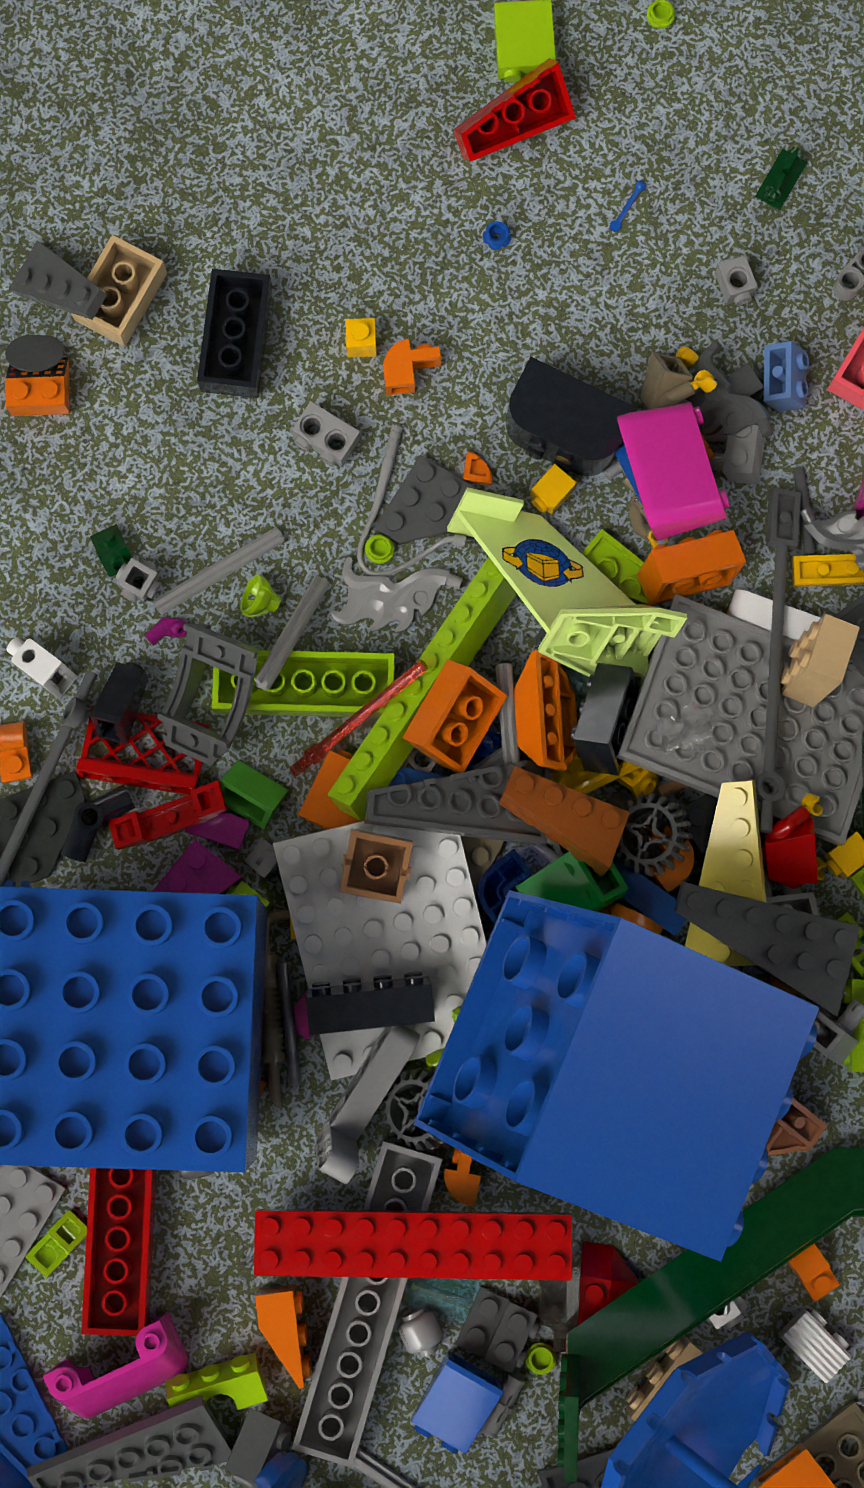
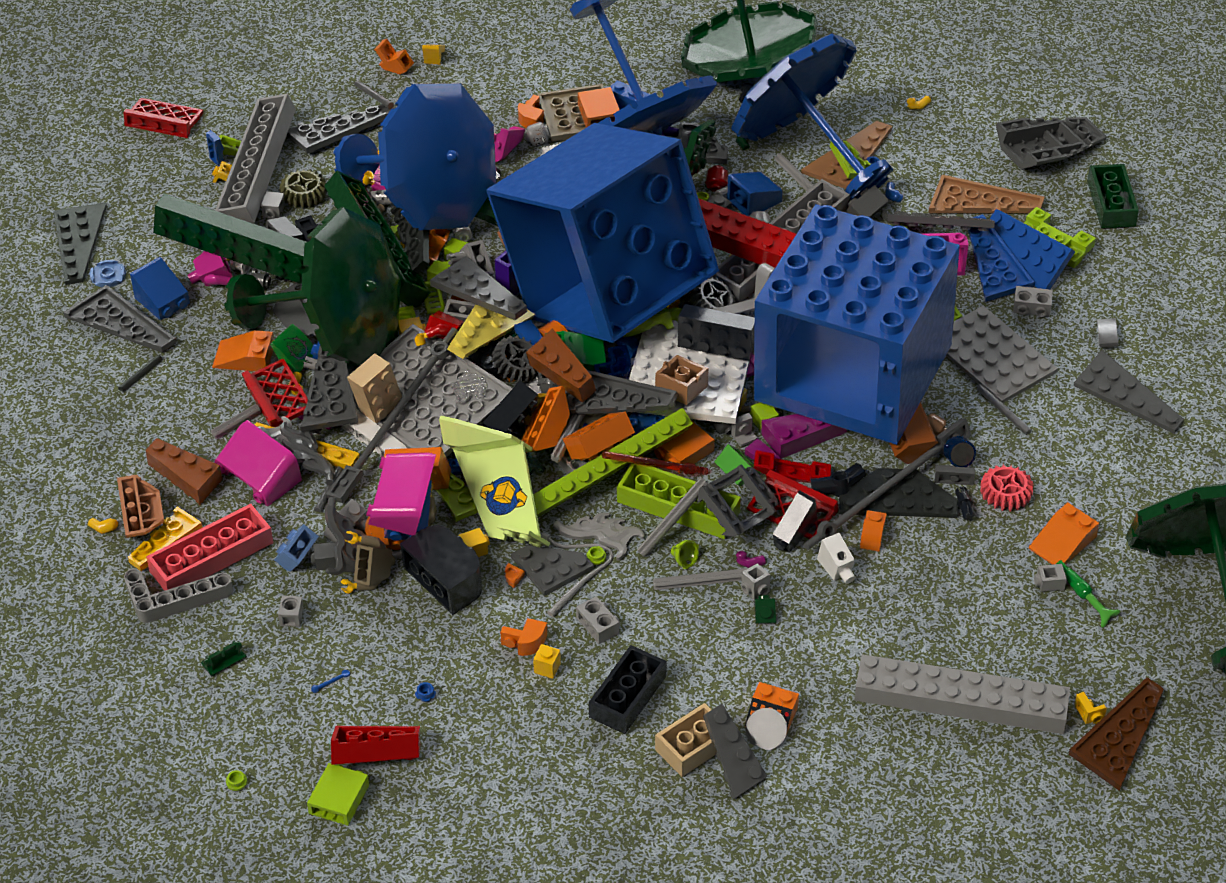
camera: 155 degrees left, 35 degrees down
(535, 1416) = (716, 177): none -> red head

